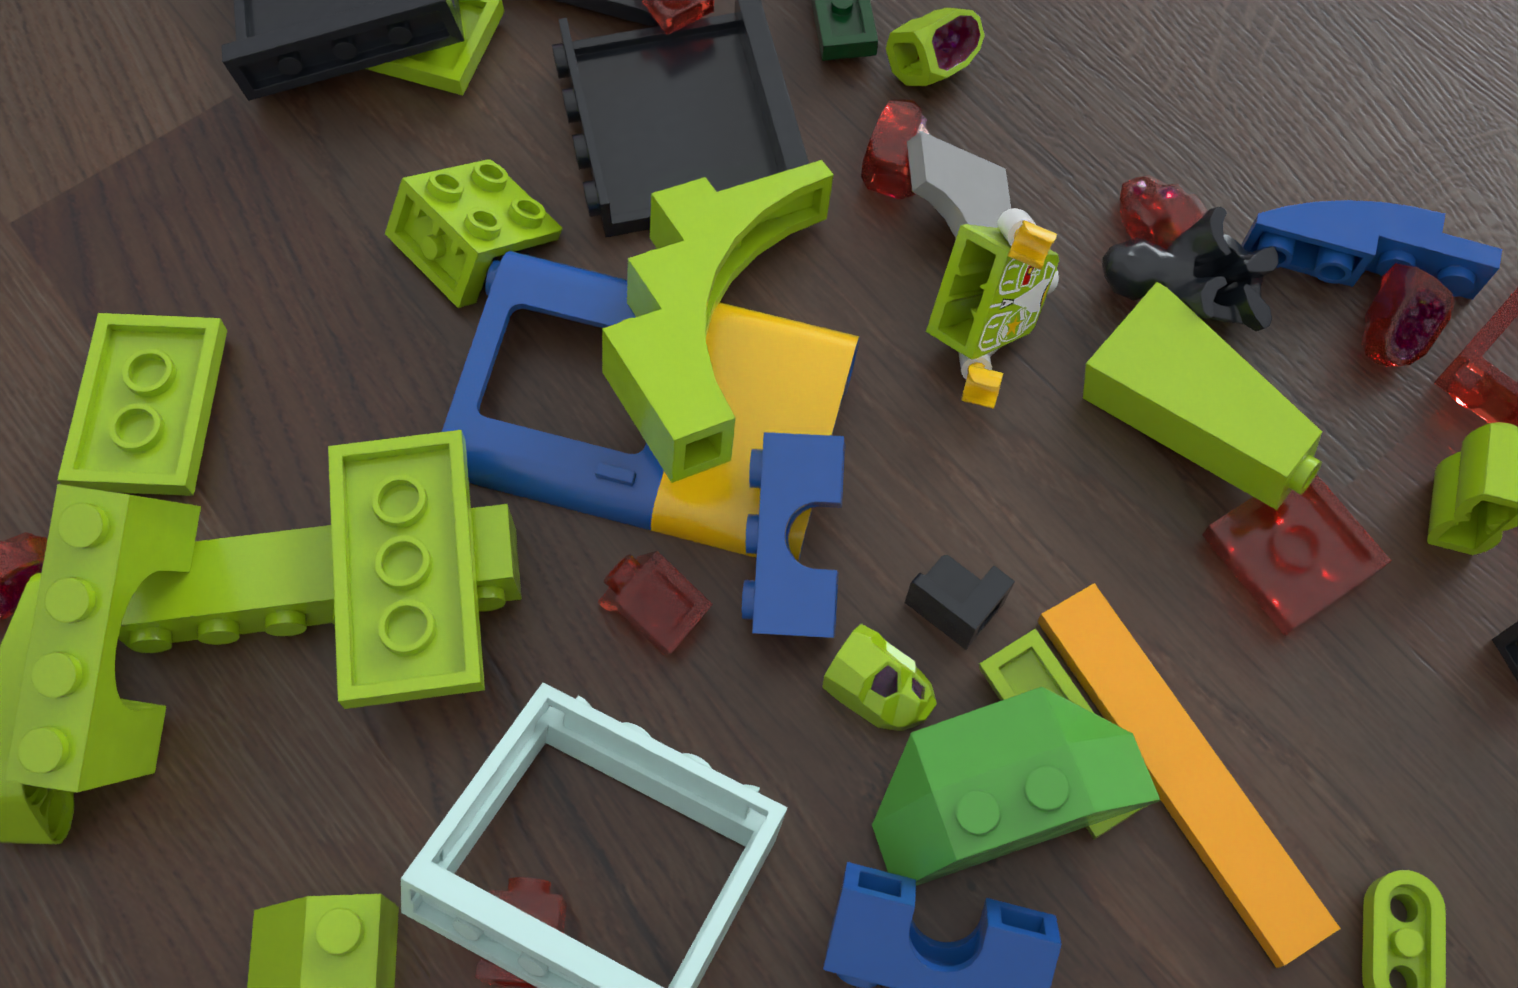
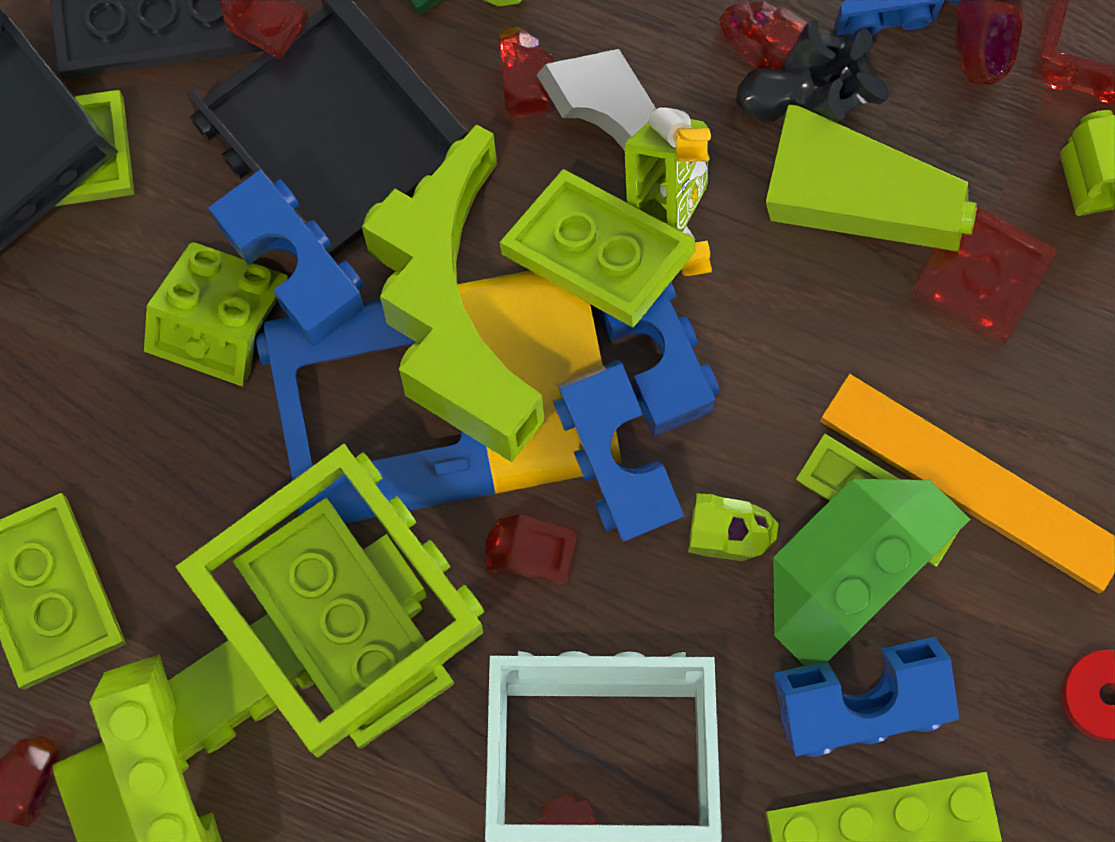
camera: 25 degrees left, 10 degrees up
(284, 429) = (425, 558): none -> lime window
(569, 232) = (262, 219): none -> blue arch
(884, 325) = (598, 247): none -> lime plate
(895, 506) = (677, 386): none -> blue arch
(958, 599) = (755, 434): black panel -> none

